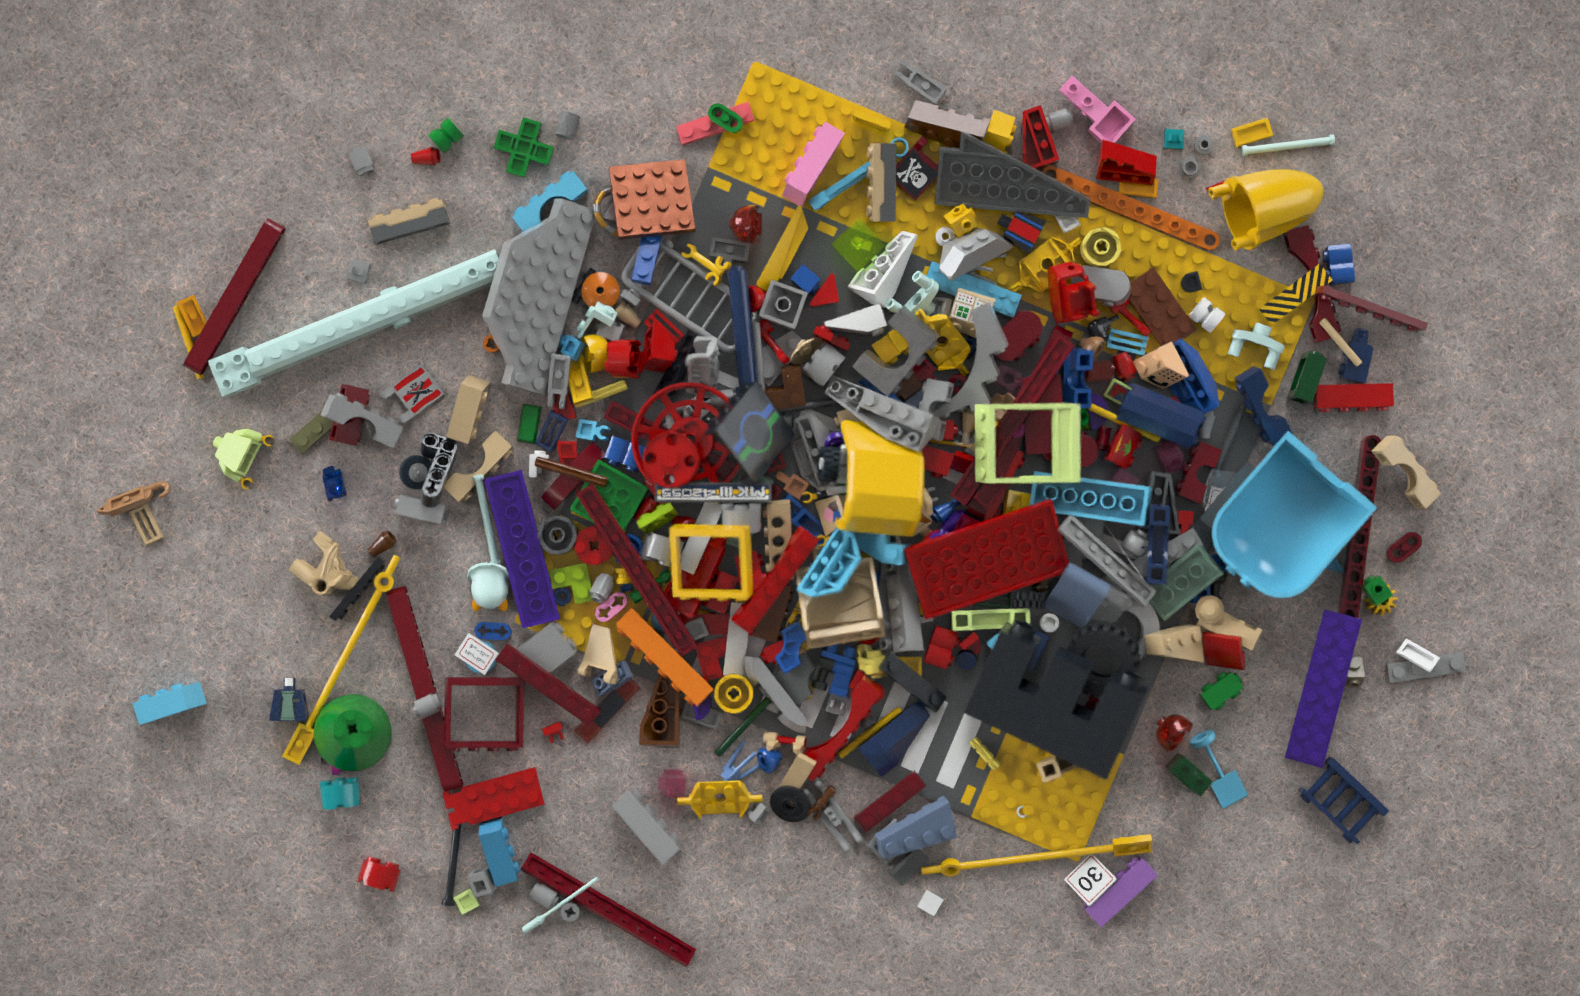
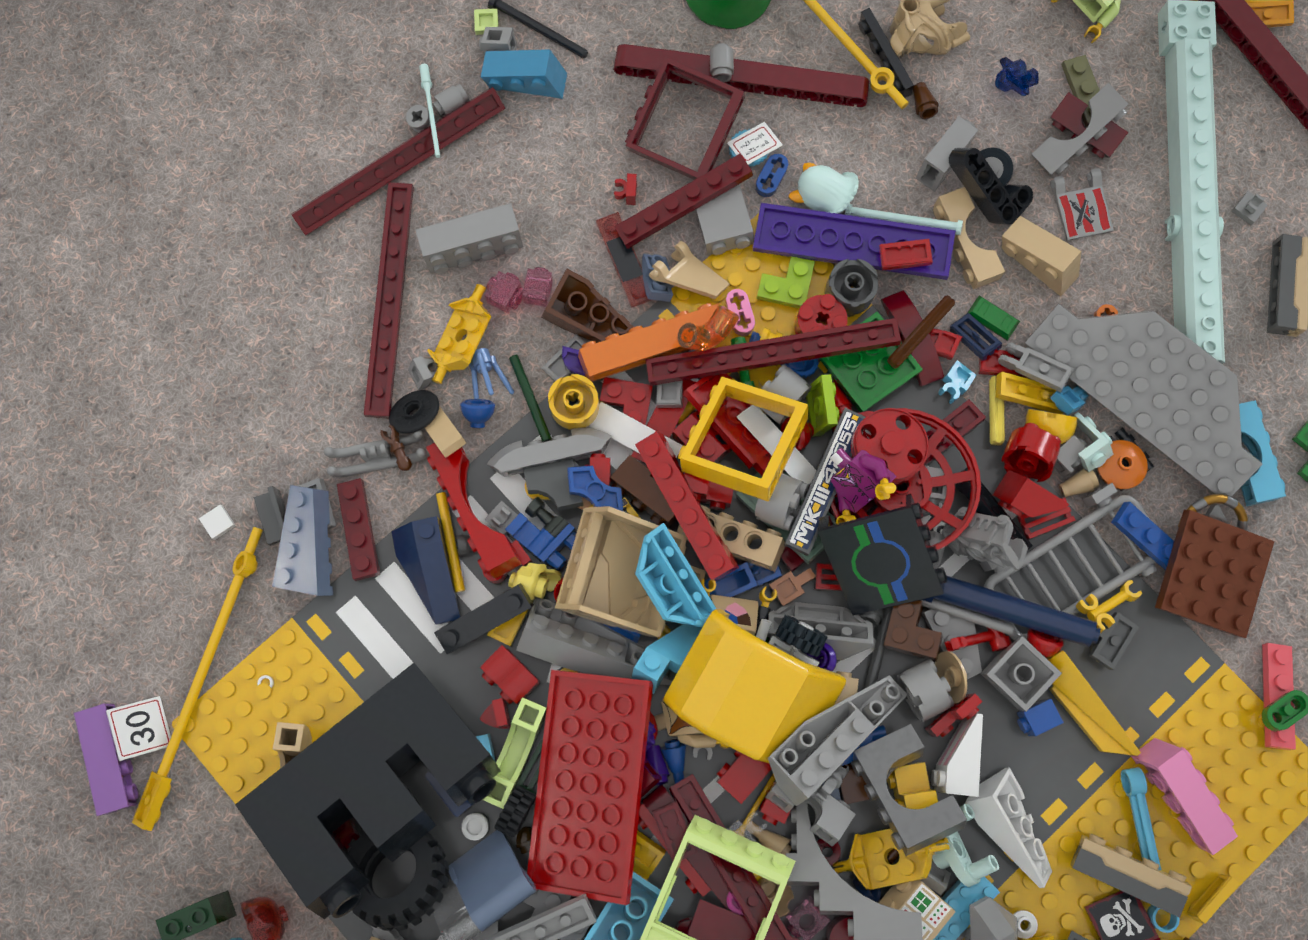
camera: 115 degrees right, 10 degrees down
(494, 798) = (583, 97): red hinge -> none
(520, 507) = (905, 254): none -> red plate
(533, 470) = (936, 295): white bracket -> none
(567, 597) = (777, 257): dark blue plate -> none
(602, 588) = (767, 309): light grey brick -> none
(621, 452) = (917, 397): blue brick -> none
(644, 619) = (711, 333): none -> clear orange cylinder
(658, 761) = (537, 286): none -> clear pink brick
(708, 470) = (860, 481): none -> magenta torso
(715, 864) = (388, 300): none -> dark red plate
(747, 224) = (1140, 677): clear red cylinder -> none
(774, 740) = (496, 427): tan piece -> none
(827, 293) = (1010, 735): red slope -> none
(858, 245) = (1056, 805): clear neon green plate -> none
(913, 401) = (832, 782): none -> light grey piece
(924, 371) = (866, 814): dark red plate -> none
(961, 461) = (727, 808): red plate -> none
(966, 659) = (479, 699): dark blue tile -> none
(986, 755) = (356, 669): light yellow axle -> none

